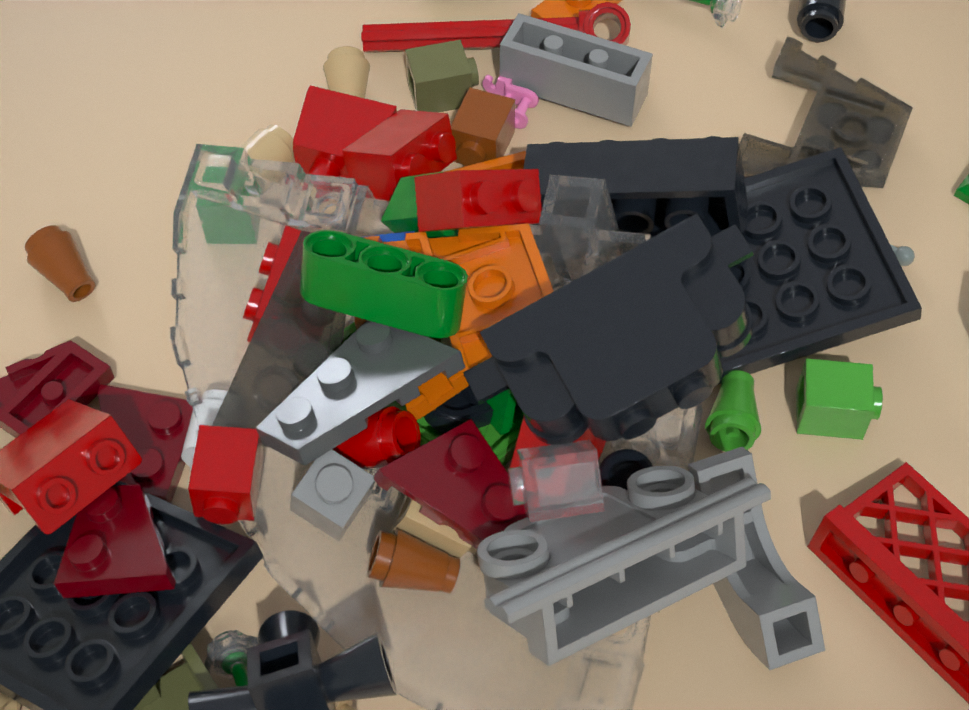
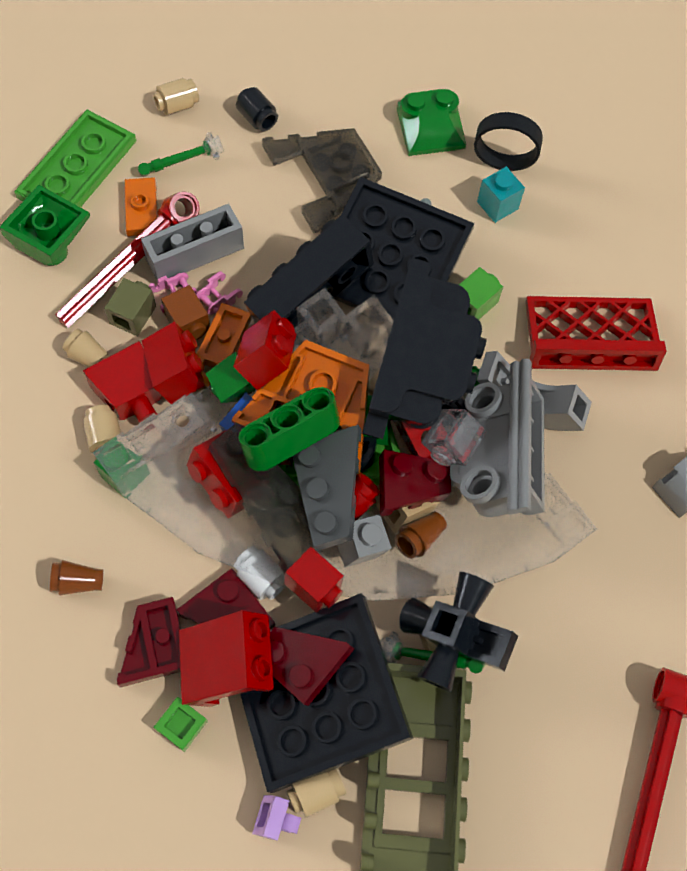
camera: 55 degrees left, 10 degrees up
(541, 132) = (210, 288): none -> bright pink piece

